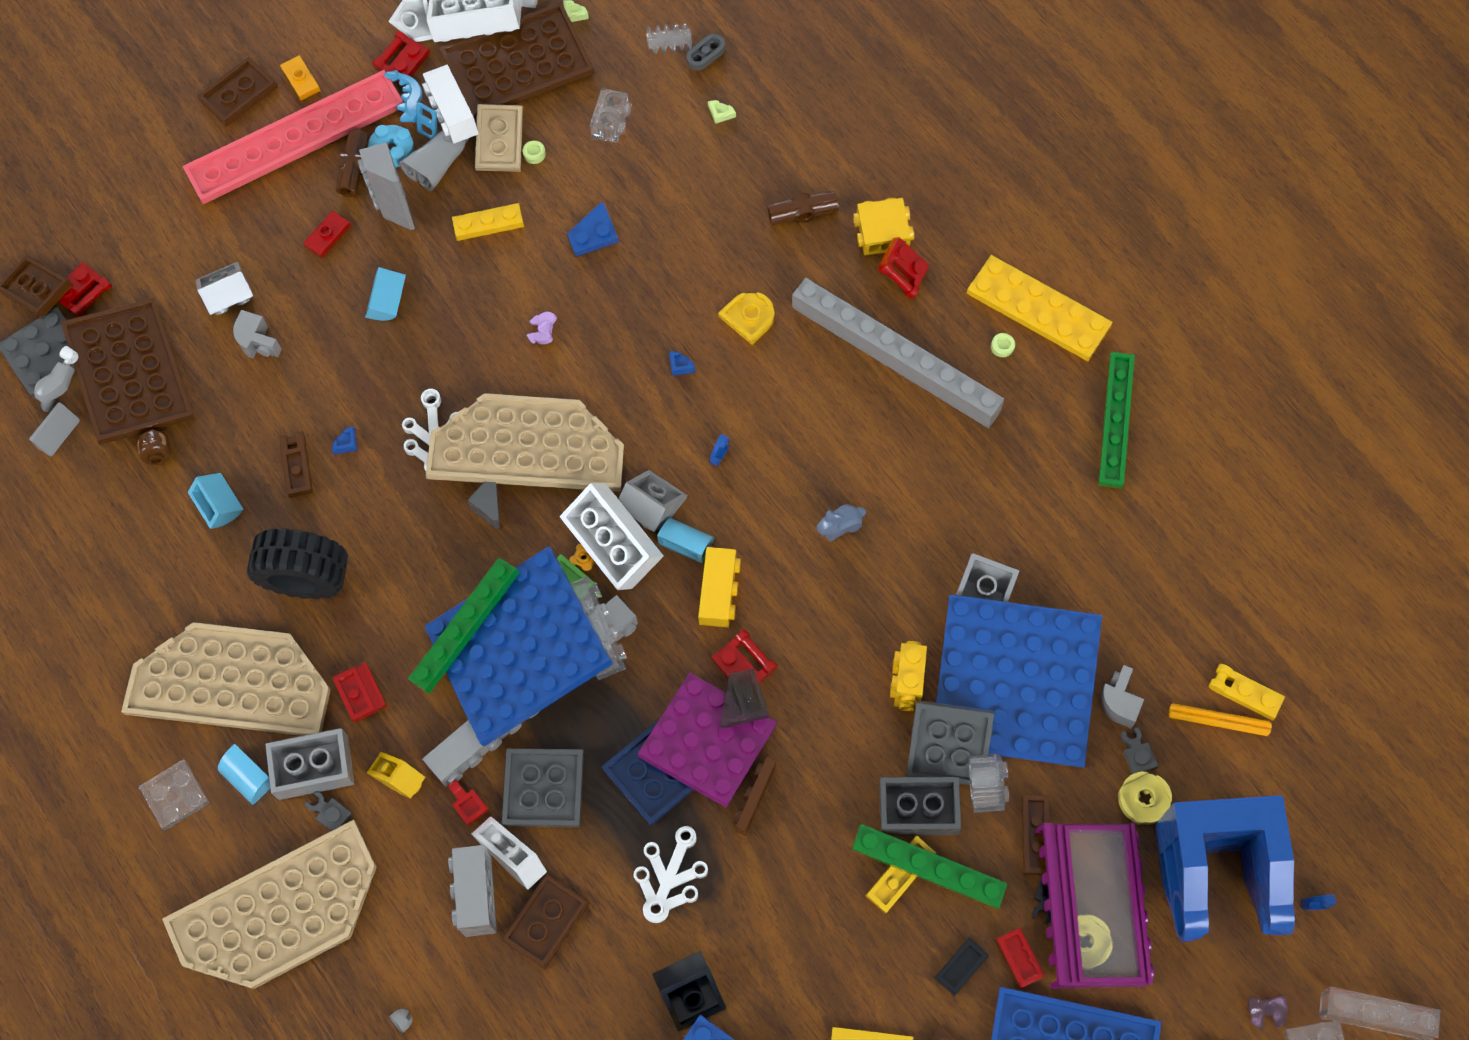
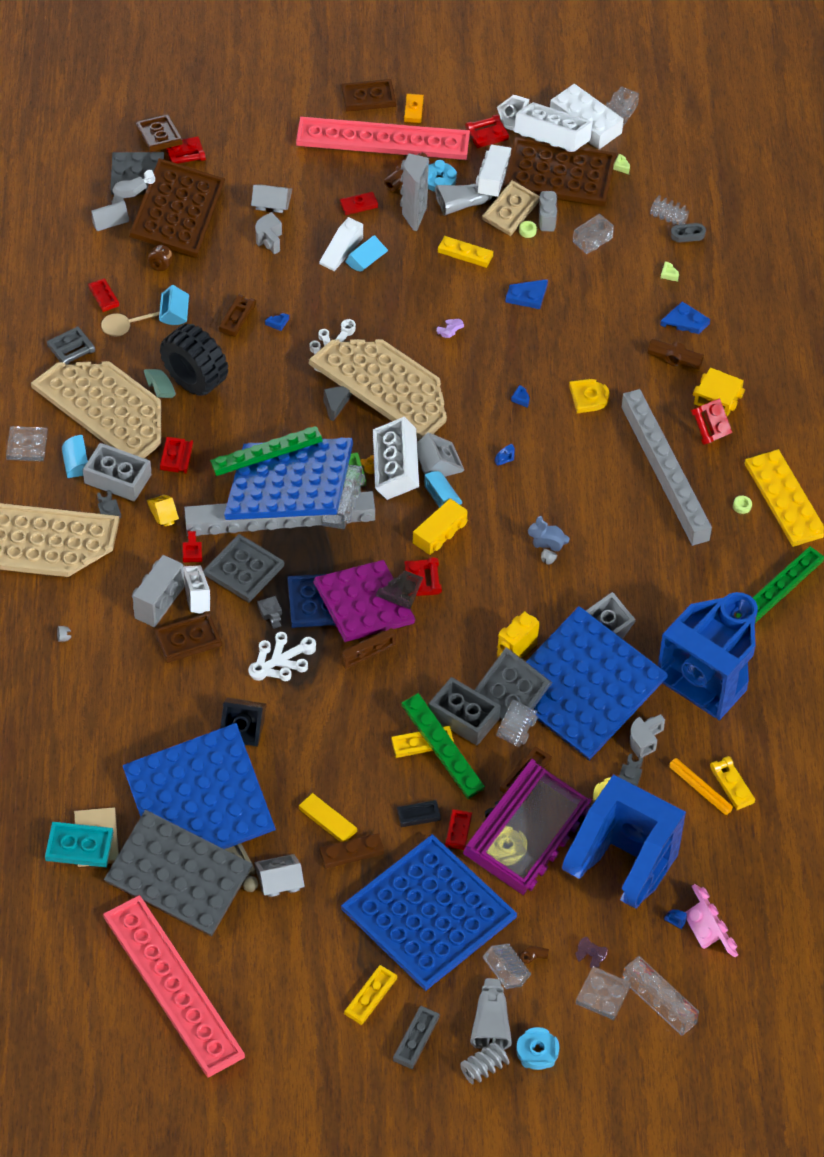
camera: 30 degrees right, 15 degrees down
(121, 537) = (103, 295): none -> red plate
(125, 626) = (68, 341): none -> dark grey plate
(165, 563) = (119, 324): none -> tan piece
(275, 611) = (160, 382): none -> sand green slope
(348, 299) = (342, 244): none -> white slope
(412, 107) = (467, 160): dark azure piece -> none
(541, 117) = (547, 211): none -> light grey brick
(611, 819) = (270, 610): none -> flat silver plate
(780, 157) = (686, 319): none -> blue wing
(857, 544) = (548, 556): none -> light grey hinge
(1136, 557) = (710, 652): none -> blue brick
(1354, 887) = (706, 924): none -> bright pink bracket

